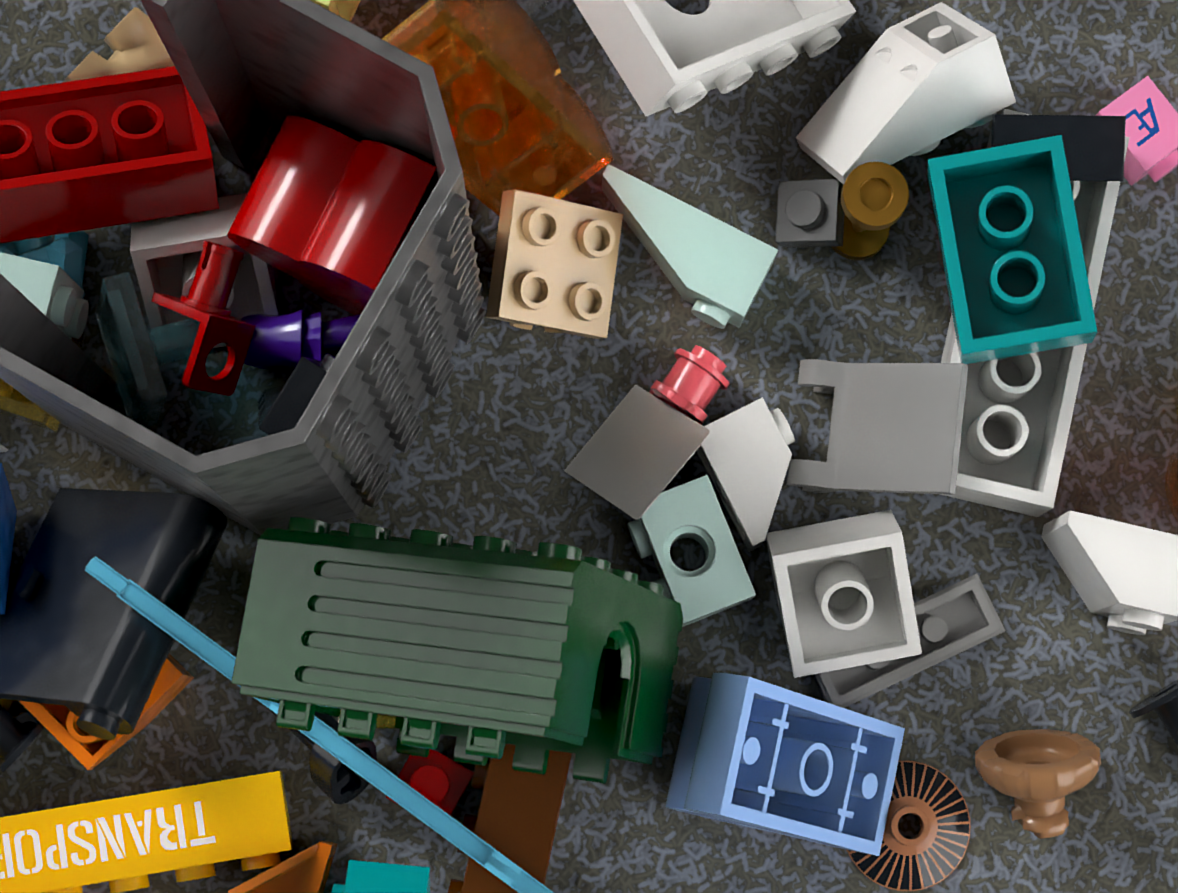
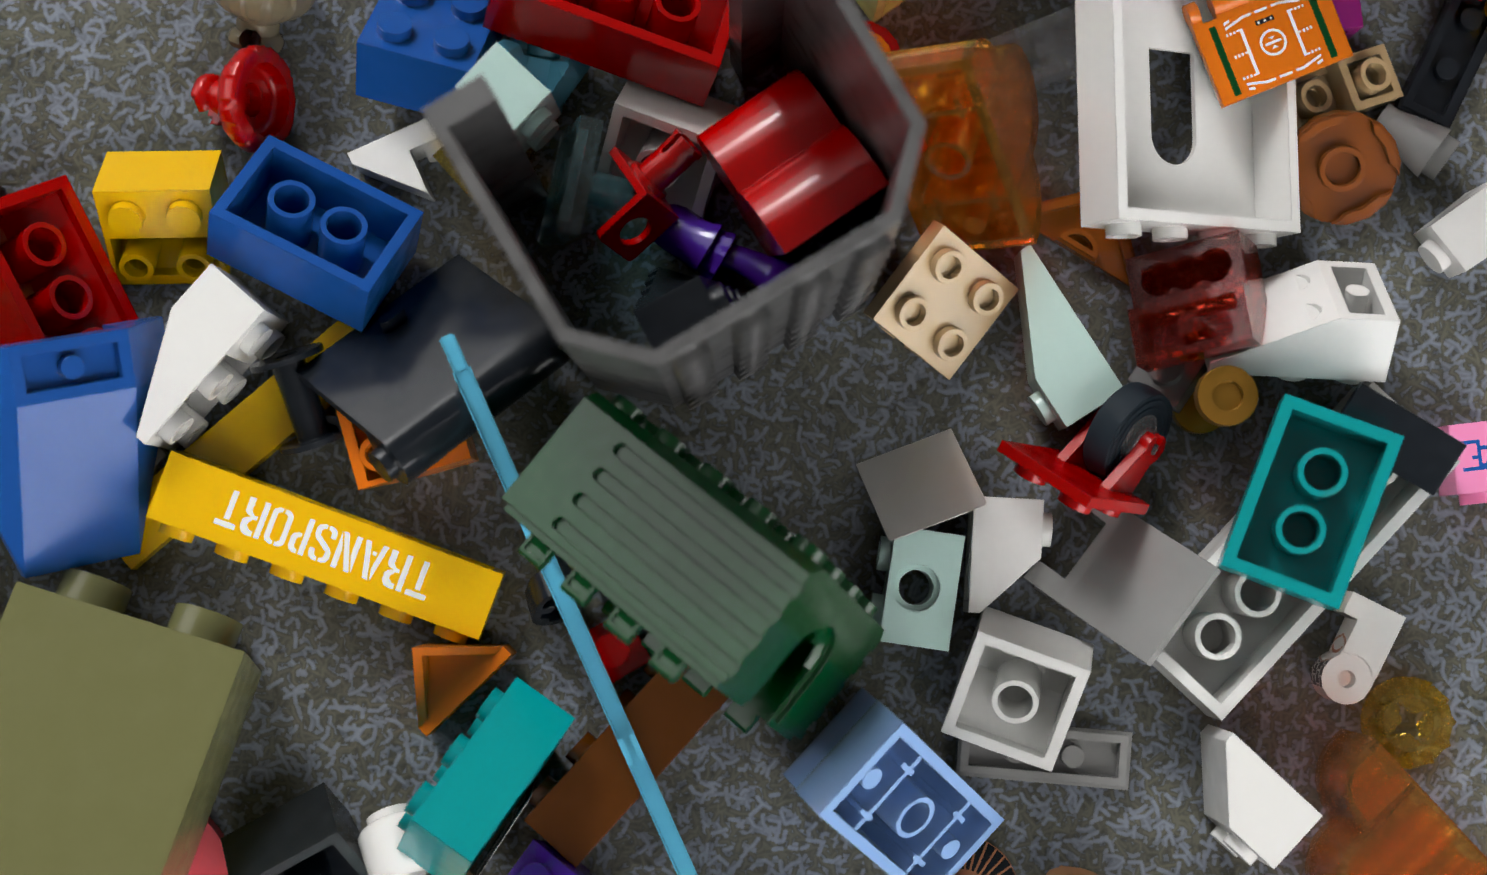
camera: 35 degrees right, 5 degrees up
(664, 131) = (1063, 226): none -> dark orange tile
(692, 382) = (985, 460): coral brick -> none
(795, 127) = (1196, 301): none -> clear red piece
(798, 308) = (1114, 445): none -> plate
(1141, 370) = (1357, 651): none -> white leg

